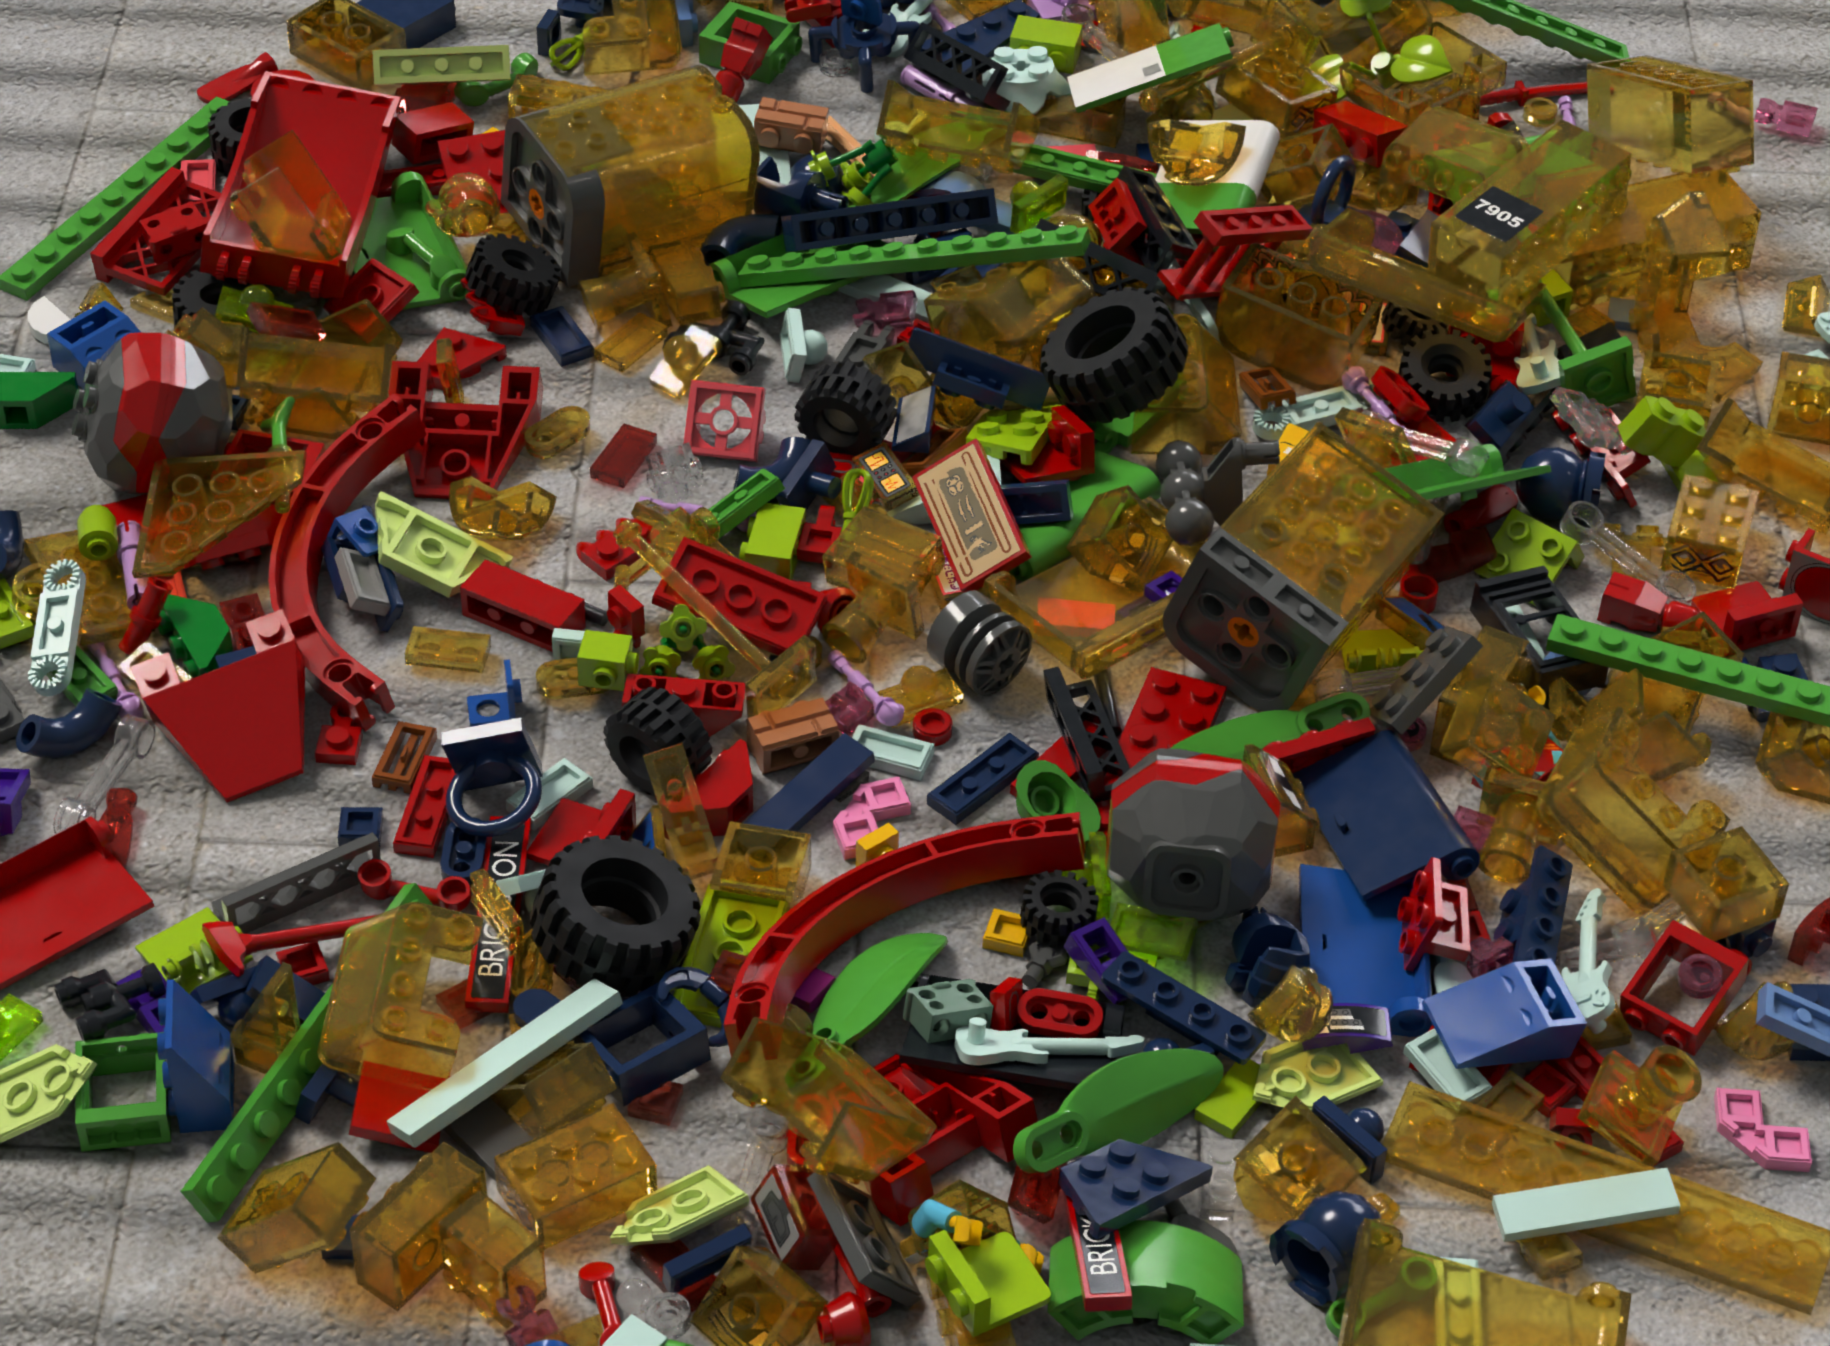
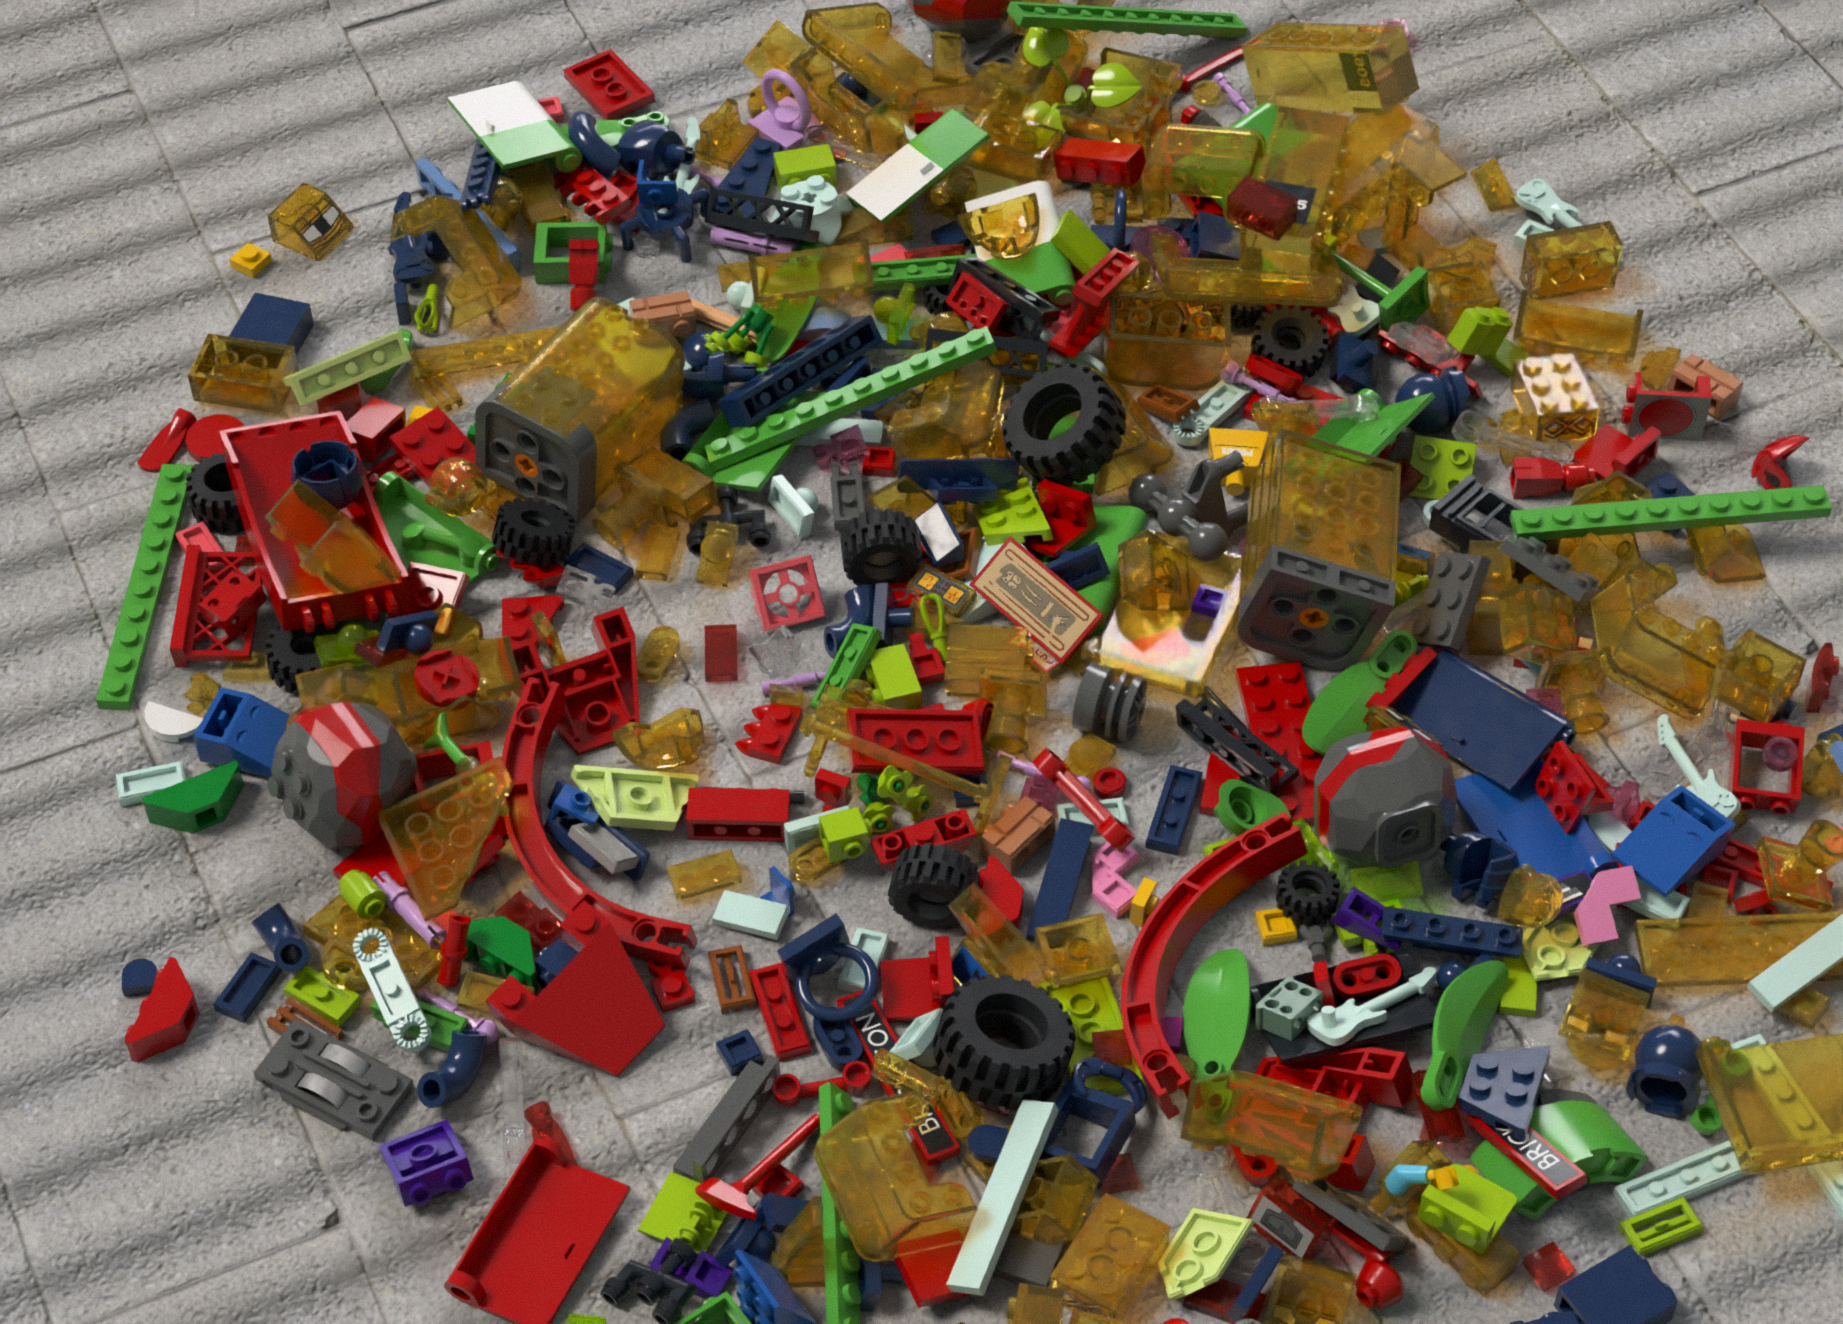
camera: 25 degrees left, 5 degrees up
(310, 312) = (409, 632): none -> dark blue tile
(318, 363) = (445, 677): none -> red tile
(340, 145) = (330, 471): none -> dark blue piece
(464, 701) = (750, 914): none -> light aqua tile
(527, 342) = (580, 586): none -> clear plate
(888, 762) = (1107, 824): none -> red piece
(1270, 187) = (1078, 242): none -> lime tile
(1300, 166) = (1087, 197): clear yellow brick -> none
(1392, 1034) = (1594, 913): none -> bright pink tile
(1462, 207) = (1262, 208): none -> clear red brick
(1536, 908) = (1630, 754): dark blue bracket -> none
(1551, 679) = (1551, 568): none -> dark grey plate

